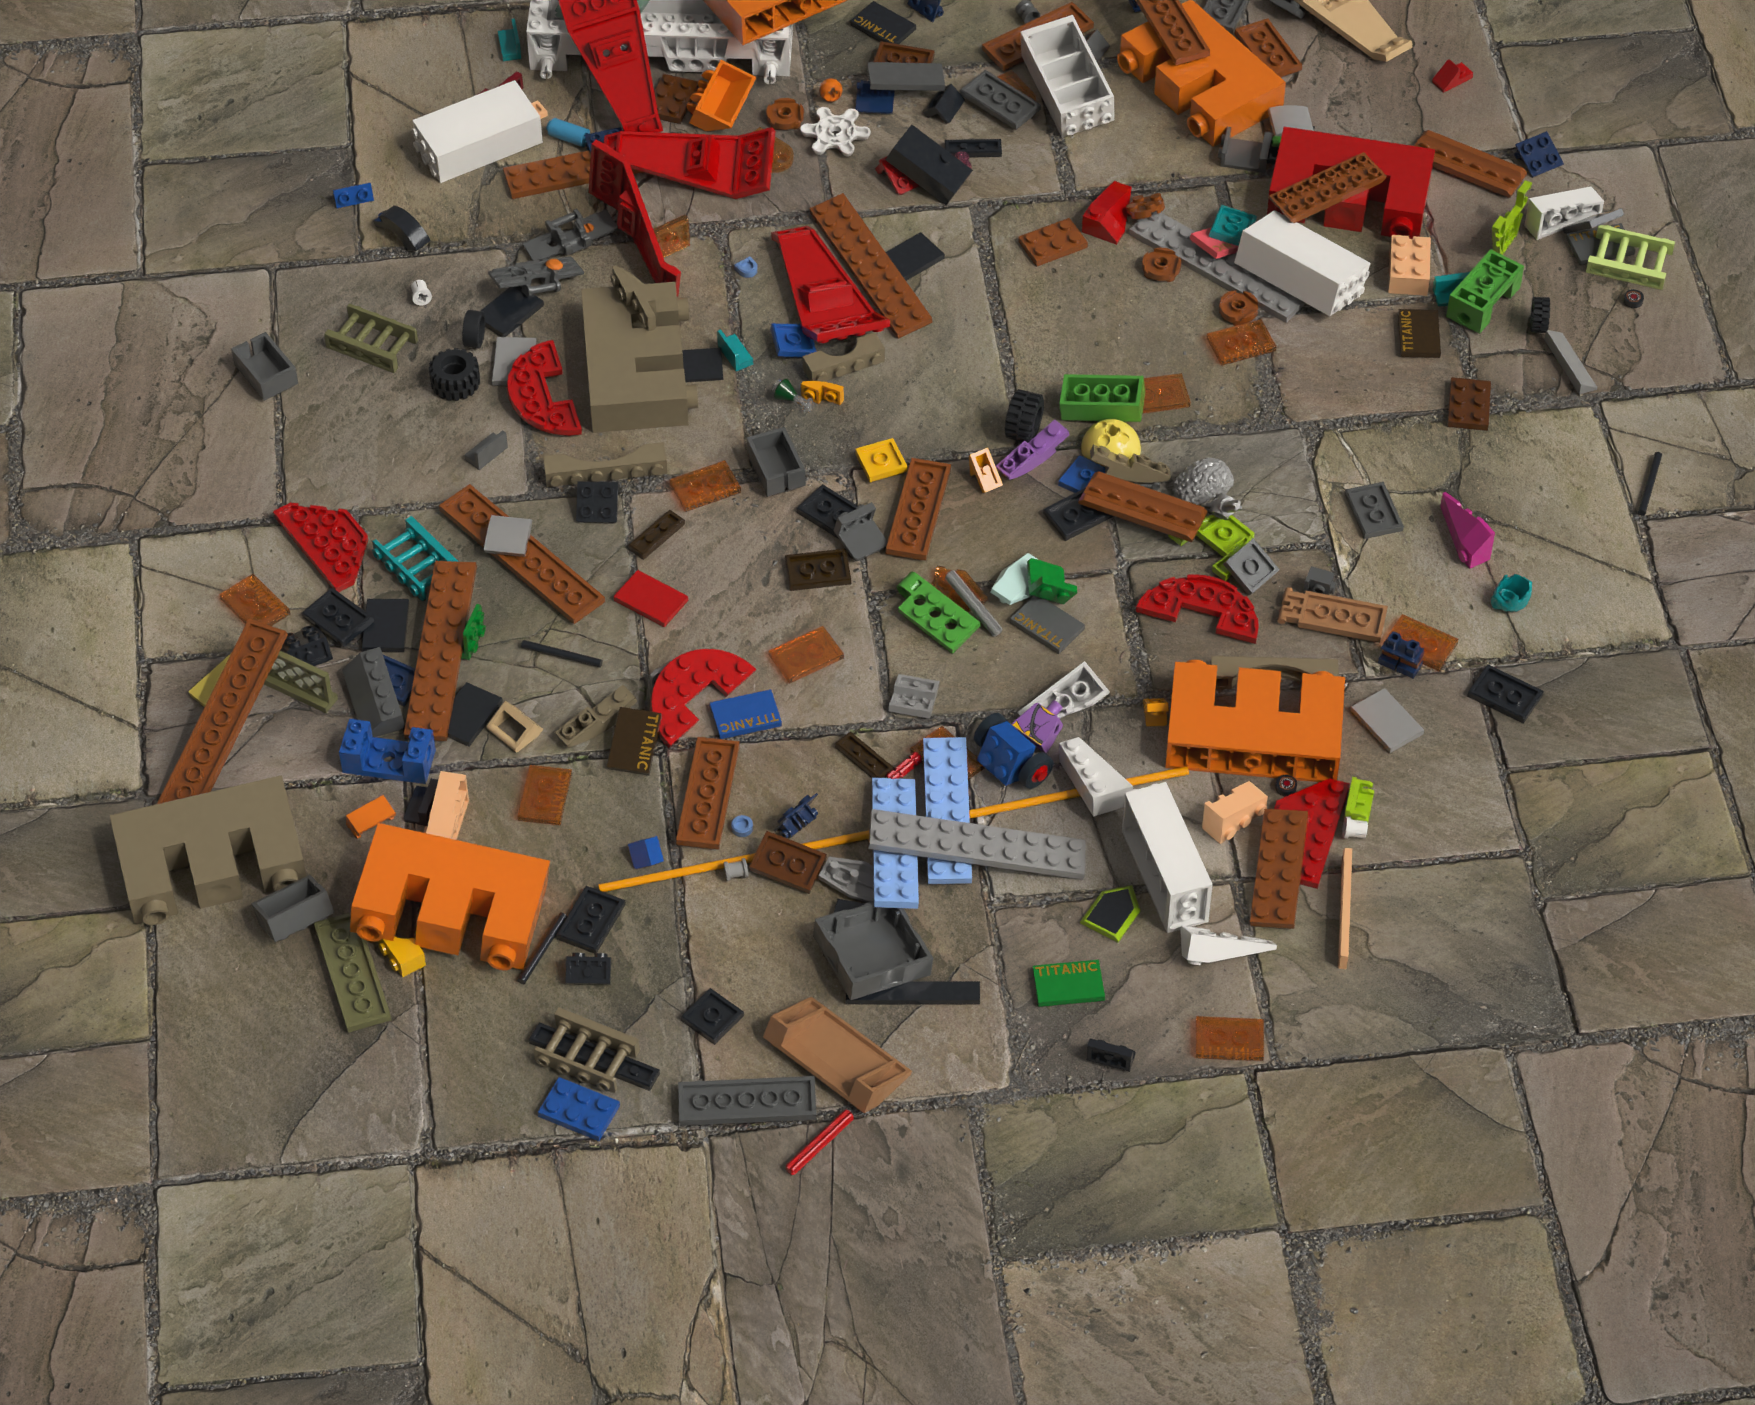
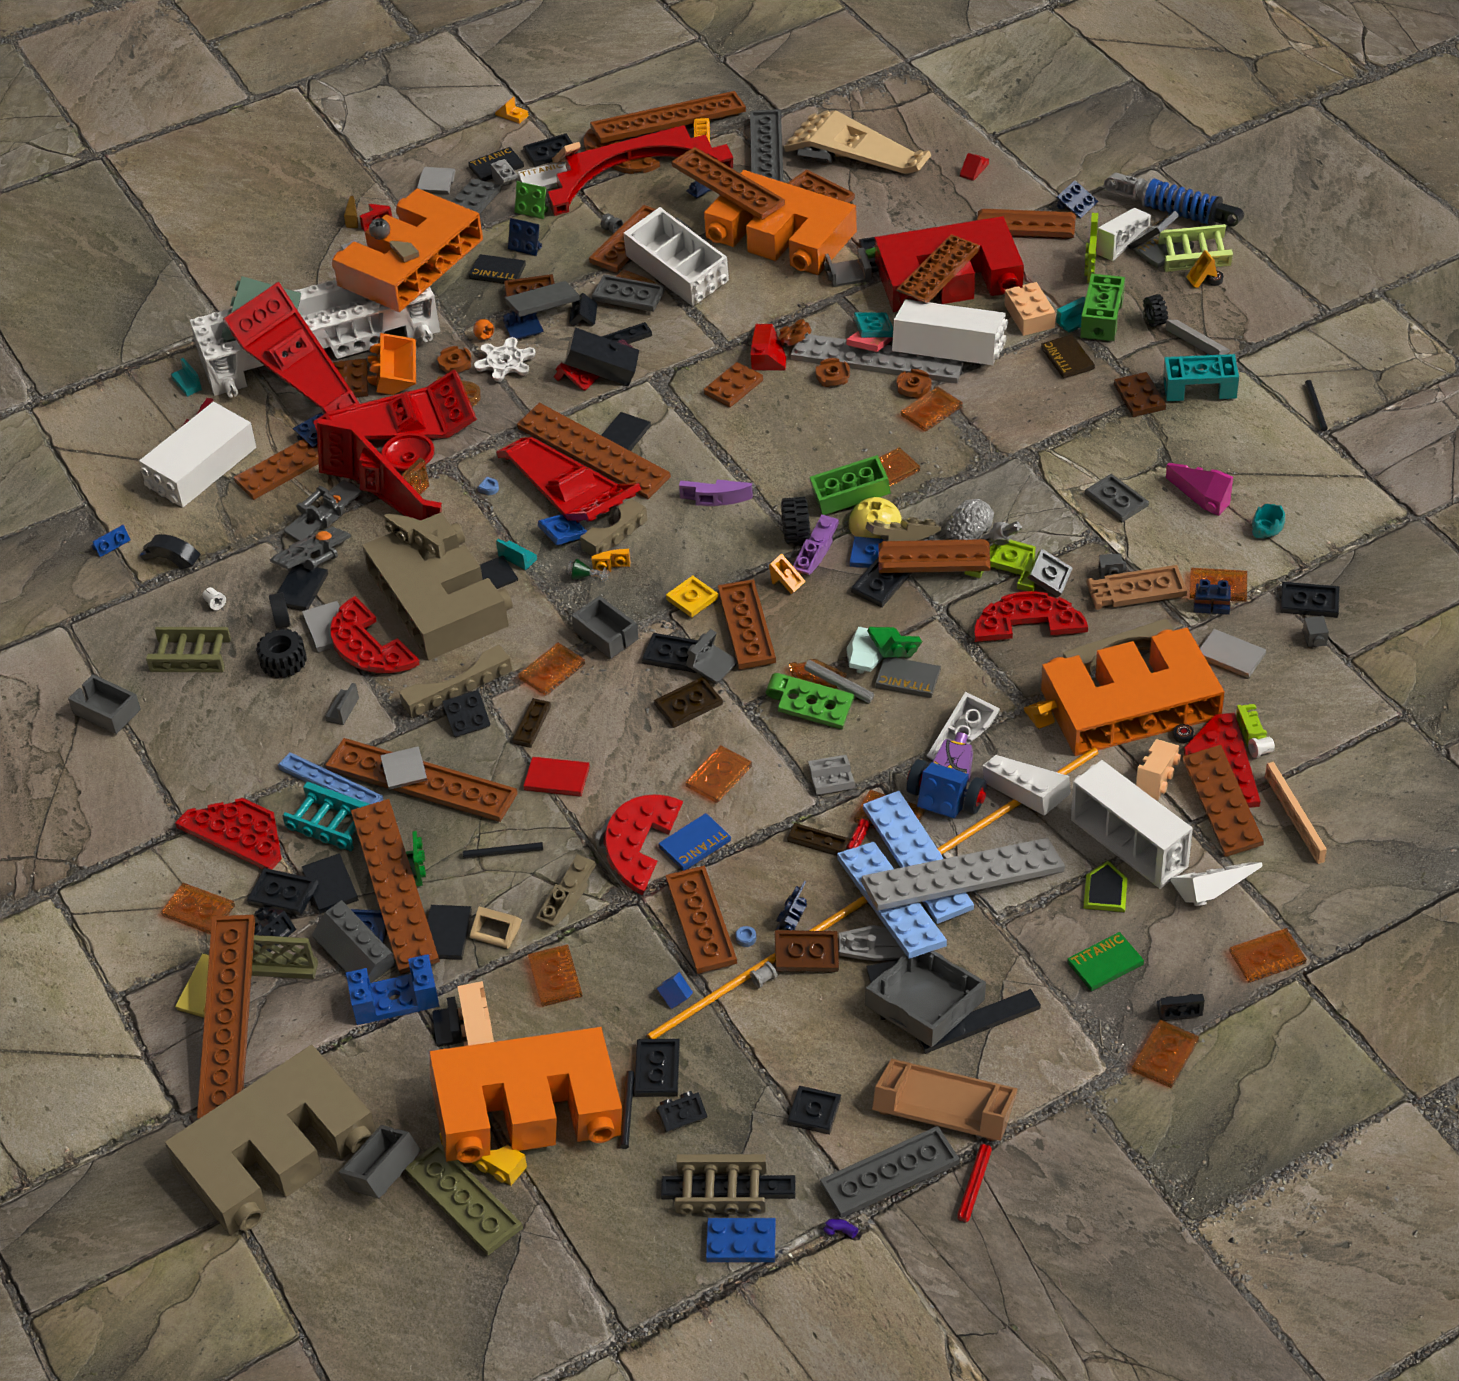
camera: 20 degrees left, 5 degrees down
(369, 816) = (405, 1053): orange hinge -> none
(435, 522) = (320, 776): none -> medium blue tile
(567, 132) = (275, 431): dark azure brick -> none
(634, 741) = (612, 899): dark brown tile -> none
(675, 1131) = (842, 1225): none -> dark purple arm
(683, 198) = (406, 449): none -> red dish
(970, 359) = (717, 494): none -> medium lavender slope
(1072, 1093) = (1165, 1053): none -> clear orange tile
(1289, 116) = (866, 234): light grey slope -> none
(1486, 730) = (1315, 631): none -> dark grey brick
(1560, 406) = (1184, 371): none -> teal plate
(1621, 283) = (1204, 266): none -> light orange slope
(1643, 192) = (1161, 197): none -> piece

